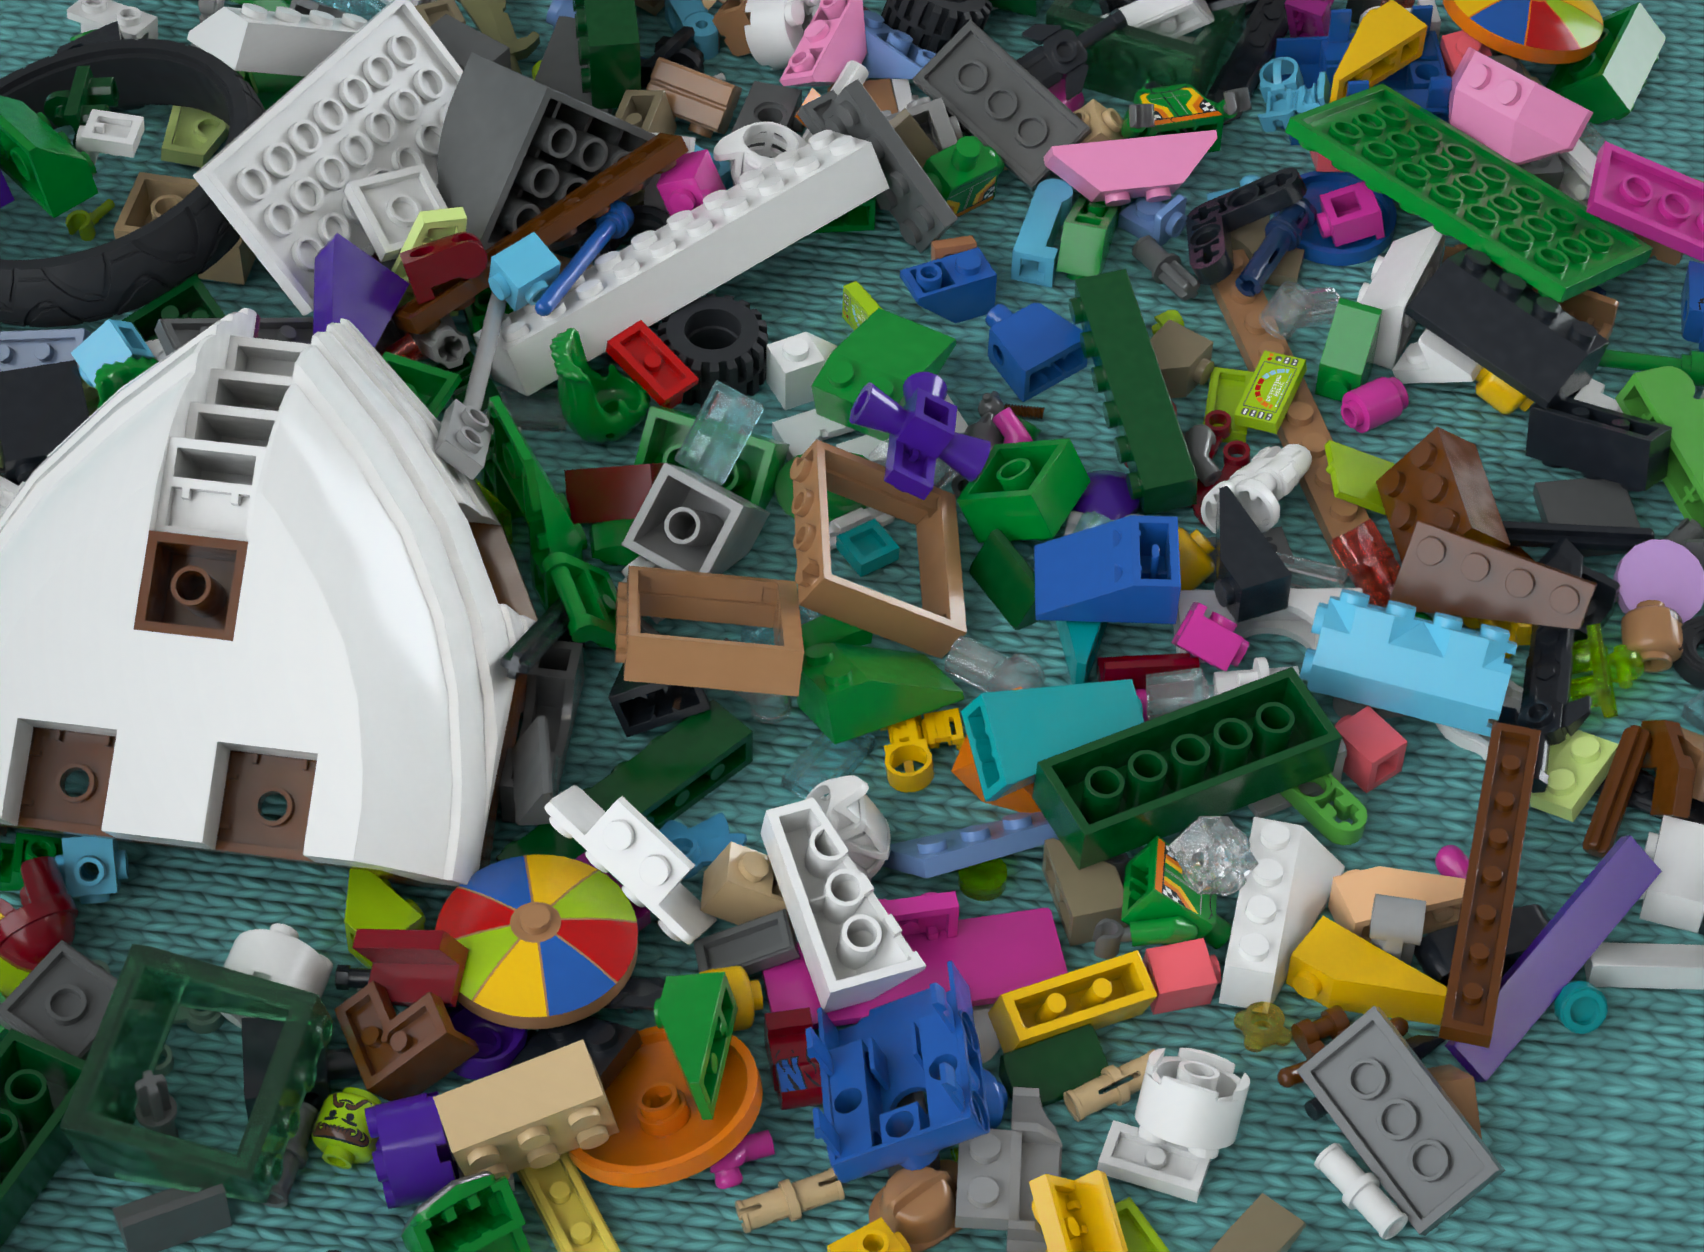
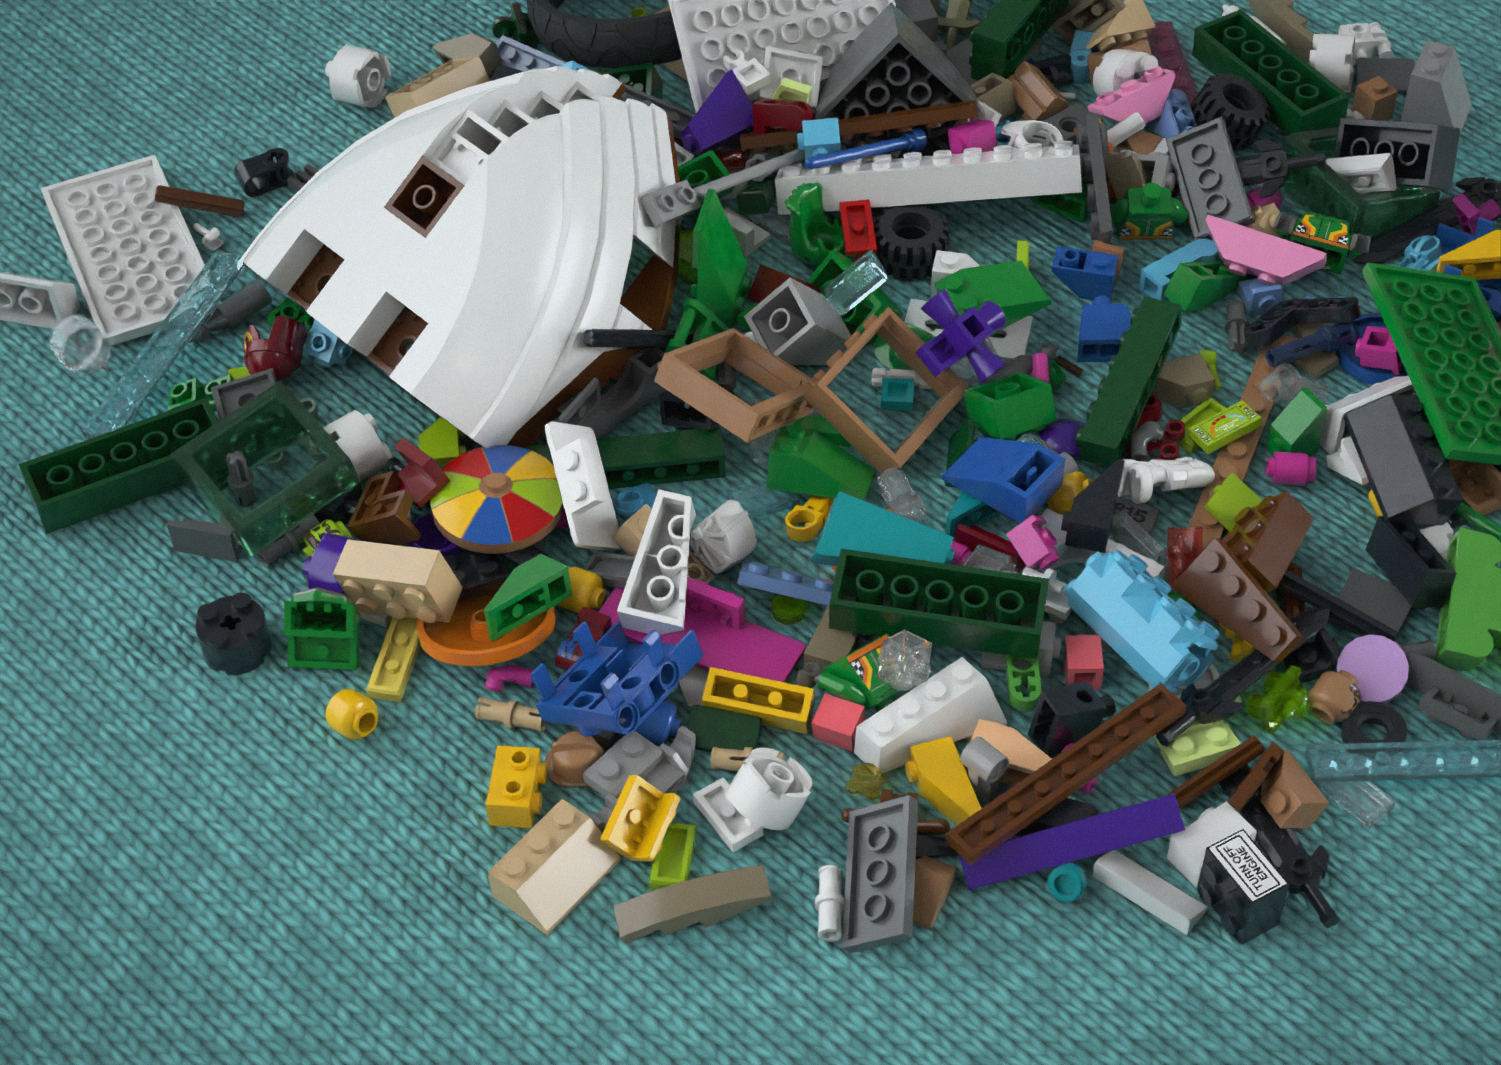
camera: 40 degrees right, 0 degrees up
(358, 225) = (749, 73): none -> white plate
(1422, 803) = (1067, 716): none -> black torso

